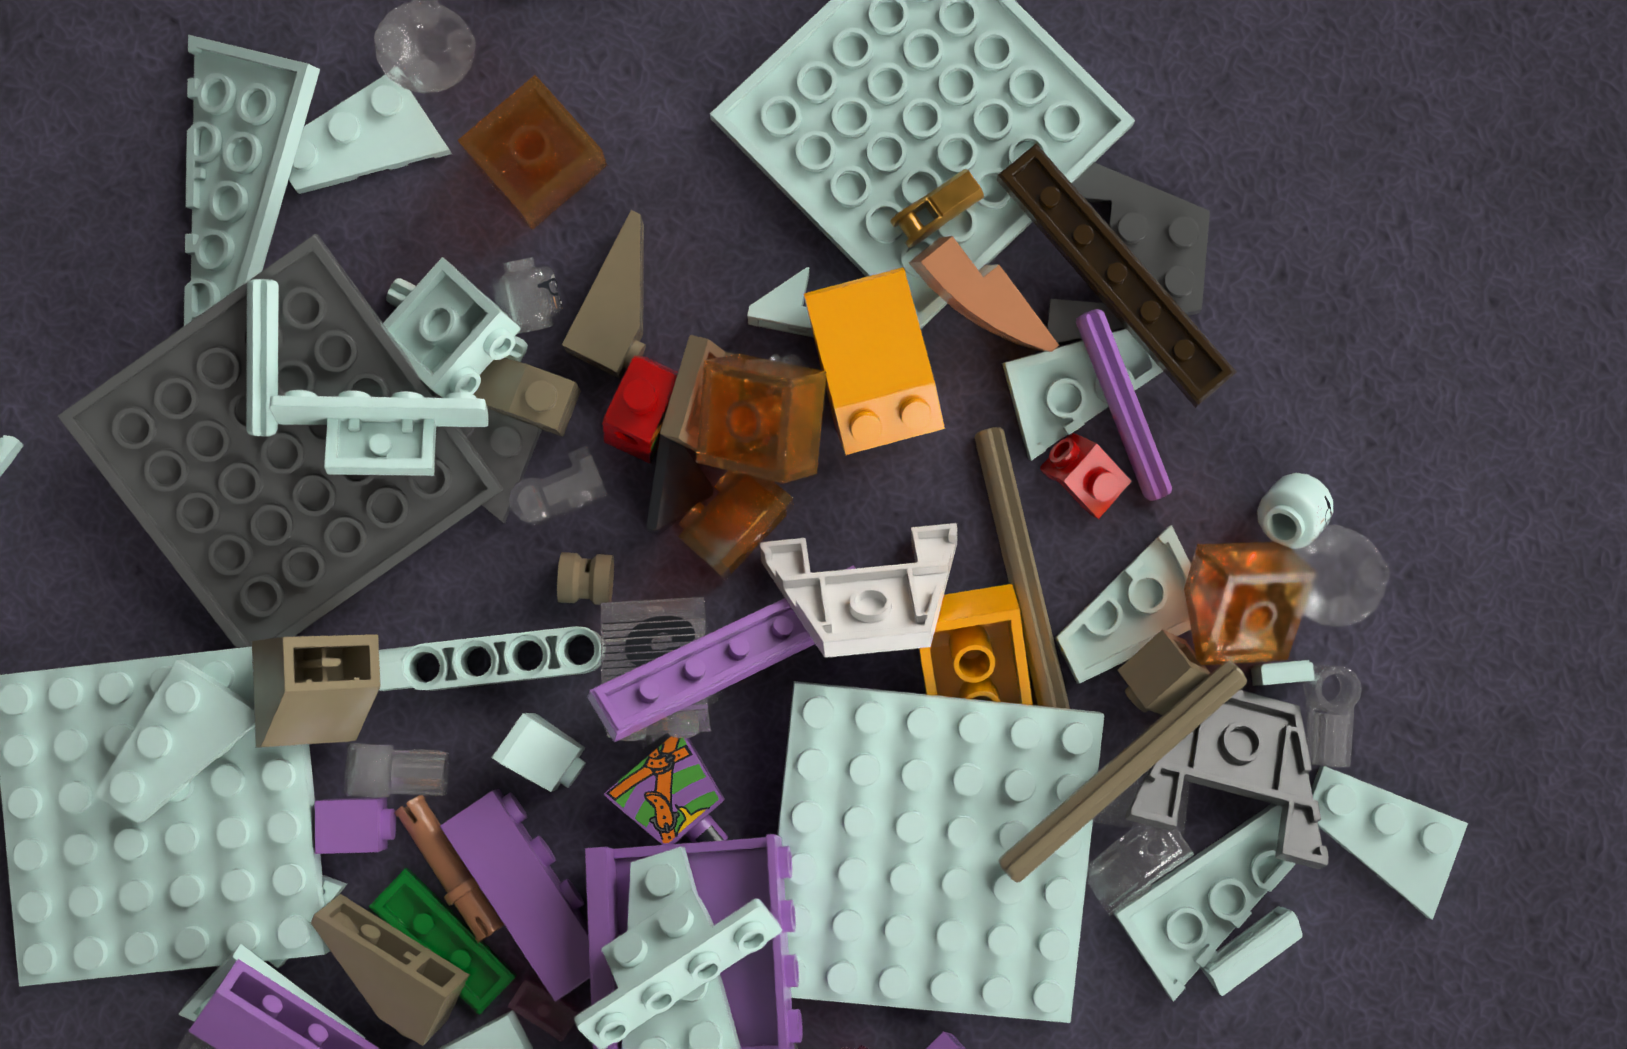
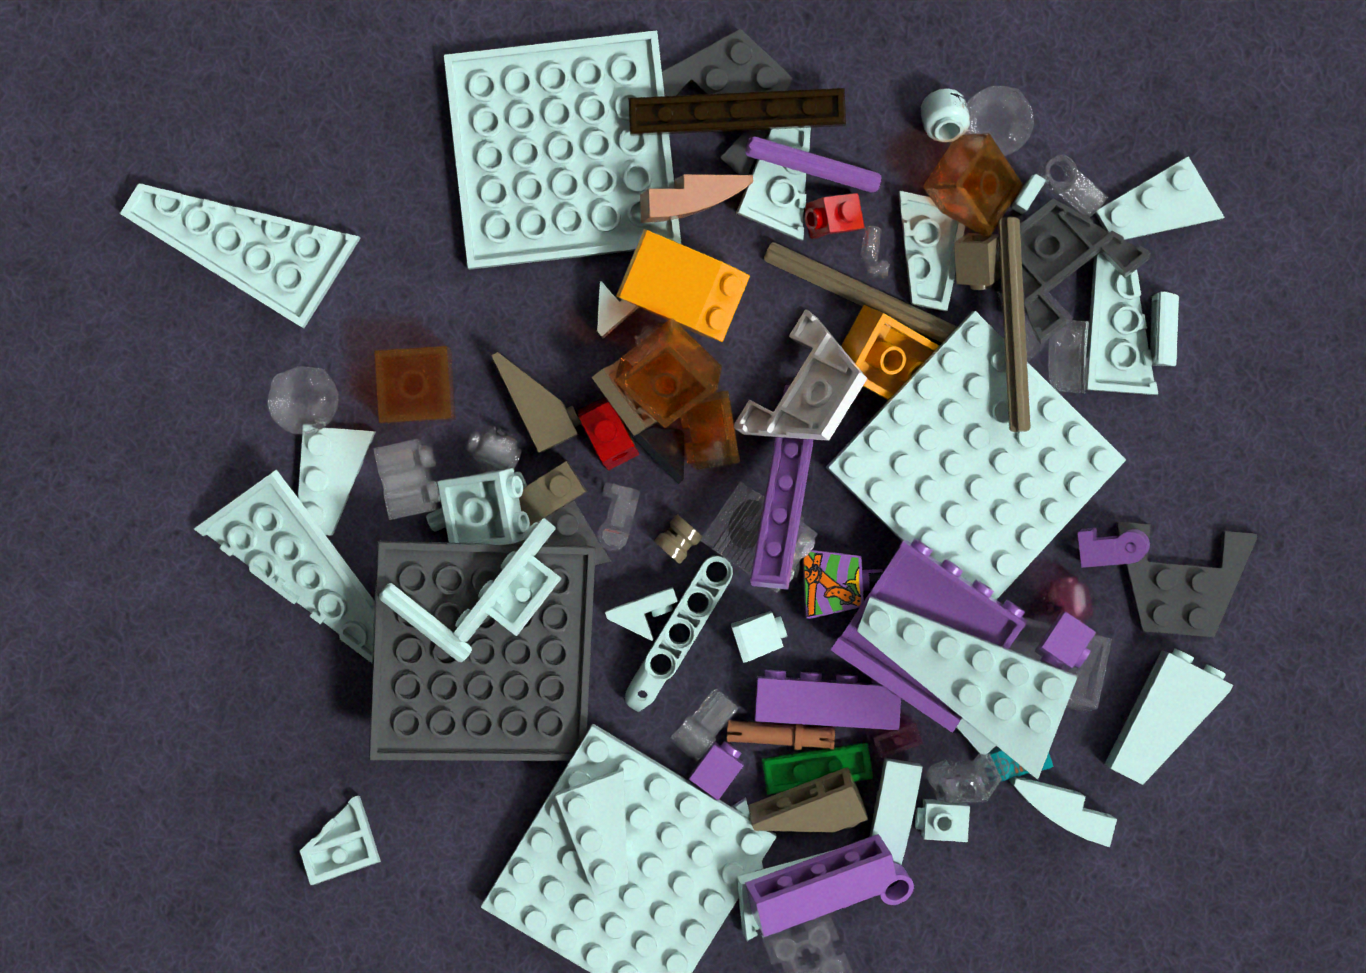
camera: 45 degrees left, 5 degrees up
(313, 688) = (628, 731): dark tan slope -> none
(419, 220) = (408, 478): none -> clear brick
(459, 594) = (633, 613): none -> light aqua slope
(669, 959) = (926, 648): light aqua bracket -> none
(942, 203) = (622, 176): pearl gold bar -> none
(1076, 545) = (869, 251): none -> clear arm

